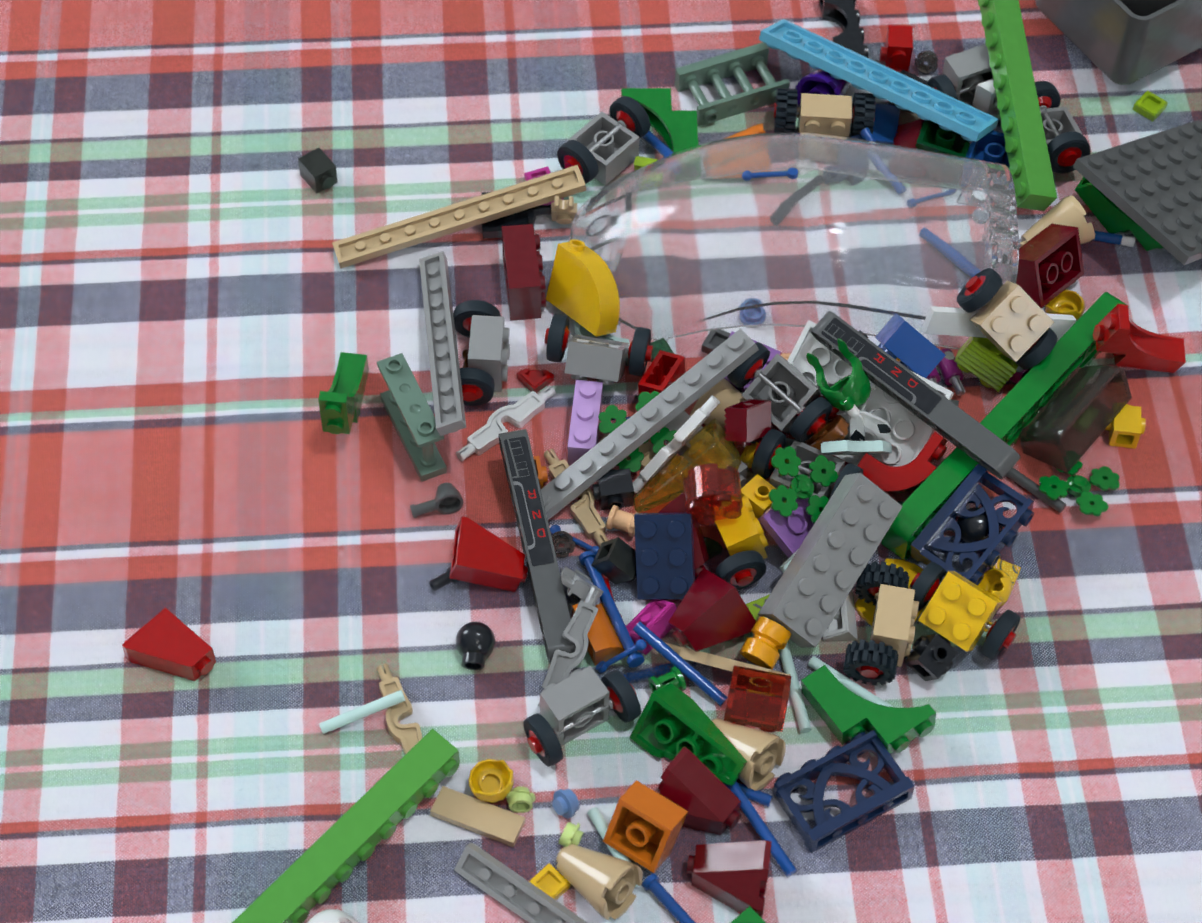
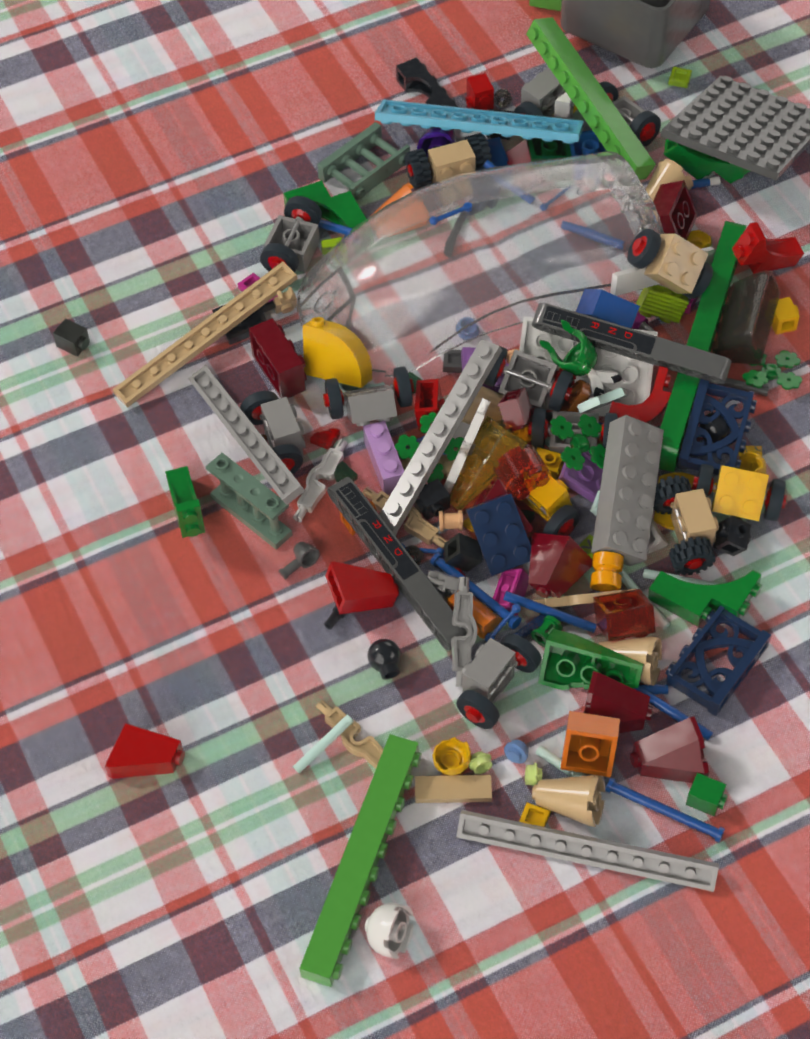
camera: 20 degrees left, 0 degrees up
(535, 426) = (343, 471): none -> clear green tile

